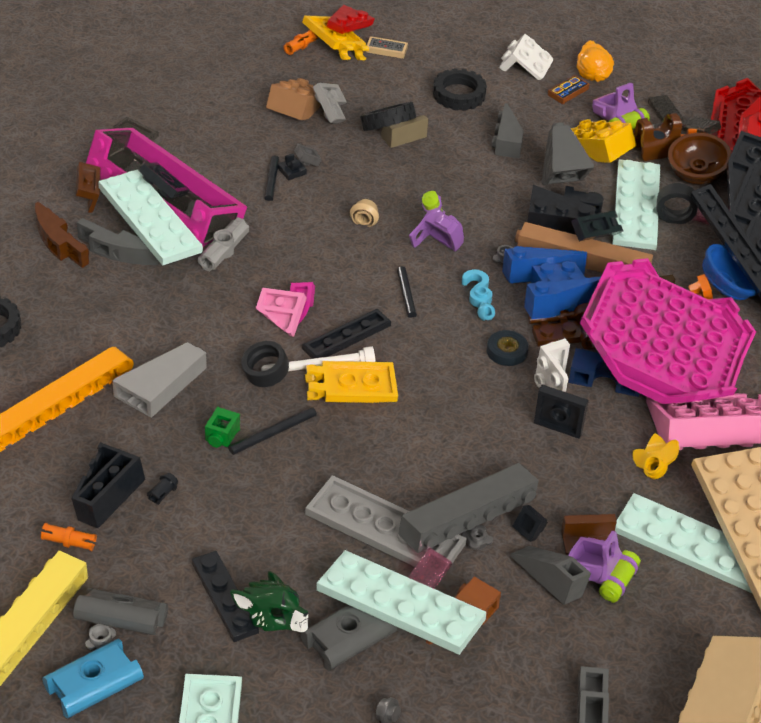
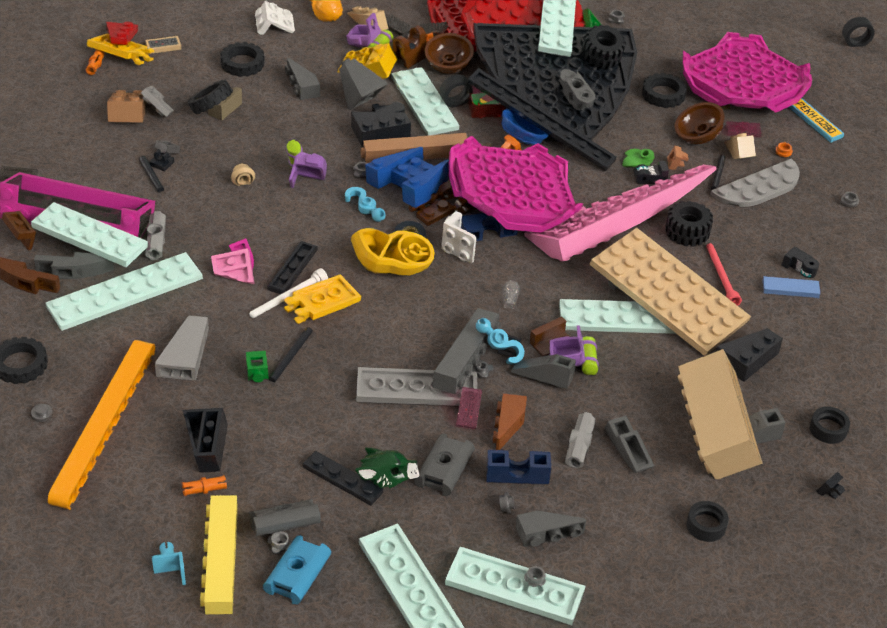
camera: 30 degrees left, 0 degrees up
(150, 291) = (123, 291): none -> light aqua plate
(167, 483) = (245, 421): black pin -> none
(168, 184) = (71, 201): black plate -> none
(259, 351) = (252, 297): black tyre -> none
(402, 601) = (469, 428): light aqua plate -> none
(406, 291) = (308, 218): black bar -> none
(411, 667) = (533, 470): none -> dark blue arch
(467, 361) = (392, 253): none -> yellow piece
(512, 510) = (499, 340): none -> medium azure piece
(534, 675) = (580, 440): none -> light grey piece
(560, 411) = (481, 262): black plate -> none
(568, 89) = (319, 33): tile -> none
(577, 462) = (510, 294): none -> clear cone
(596, 226) = (416, 126): black plate -> none
(642, 90) = (361, 14): none -> tan slope
(655, 454) = (556, 267): yellow plate -> none
(699, 232) = (484, 106): none -> clear red brick

